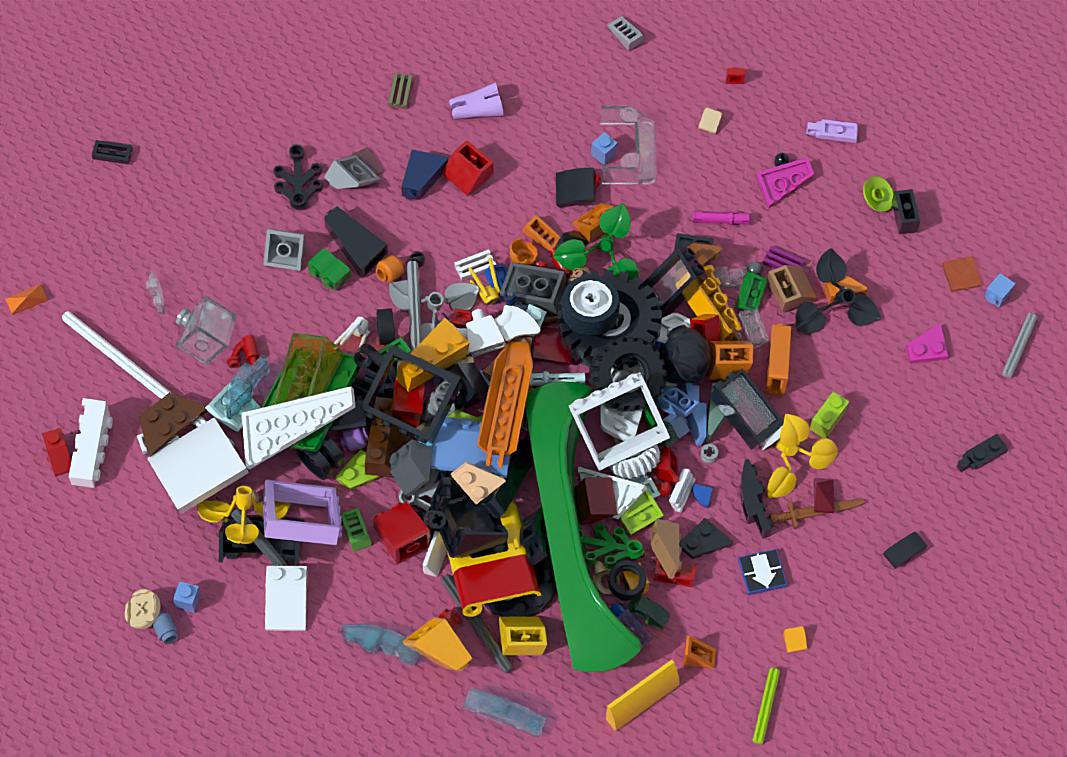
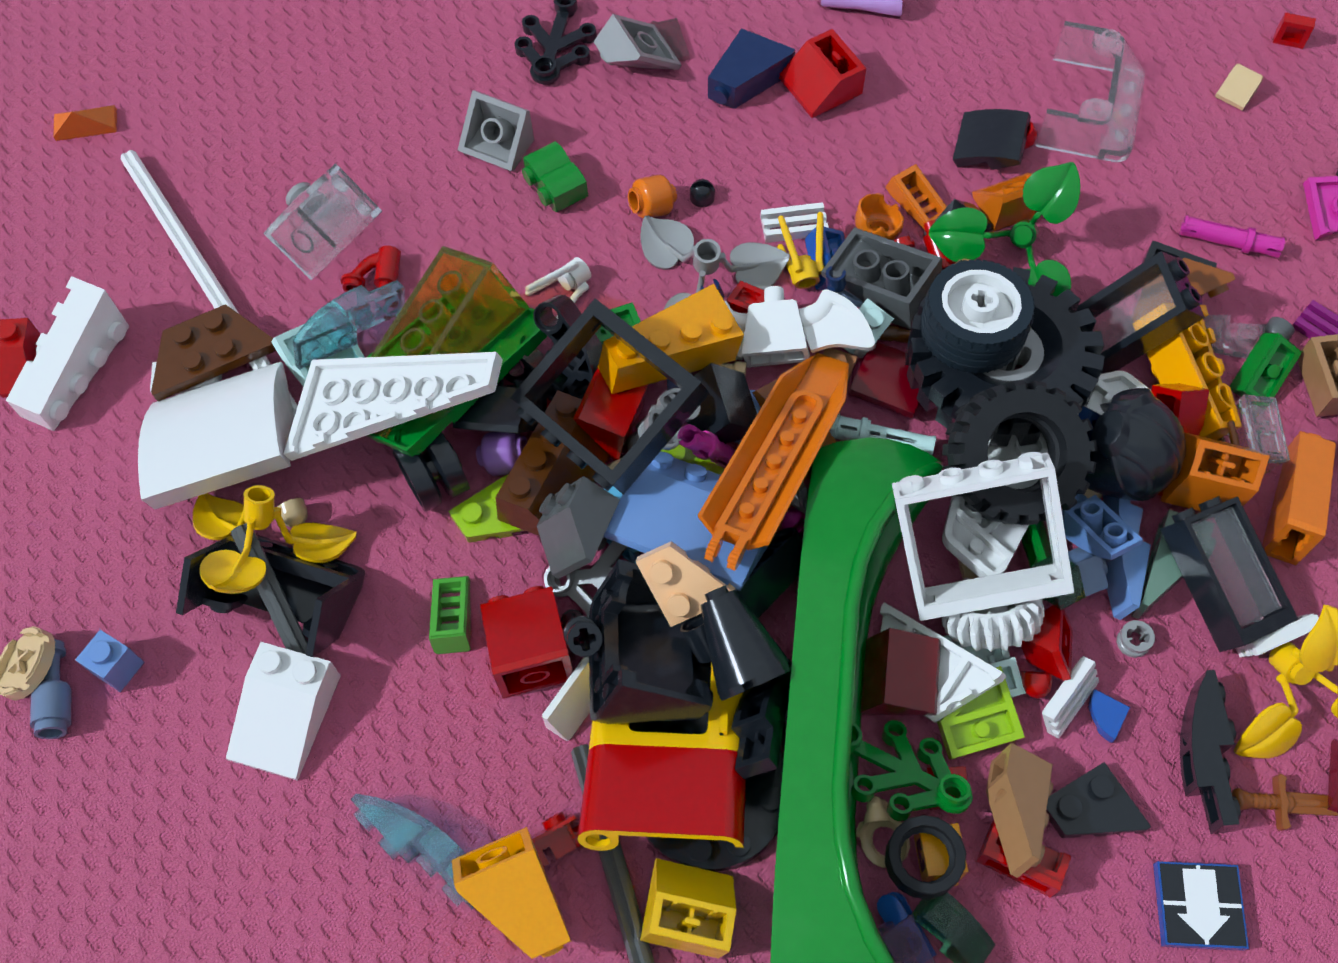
camera: 20 degrees right, 0 degrees up
(156, 292) = (276, 162): clear slope -> none
(307, 495) = (332, 599): lavender window -> none
(355, 241) = (611, 143): black slope -> none
(385, 326) = (614, 278): black tyre -> none
(414, 304) = (675, 251): light grey axle -> none
(468, 408) = (705, 445): none -> dark pink pin
(513, 503) = (739, 644): none -> black cone
(604, 148) = (1053, 89): medium blue brick -> none

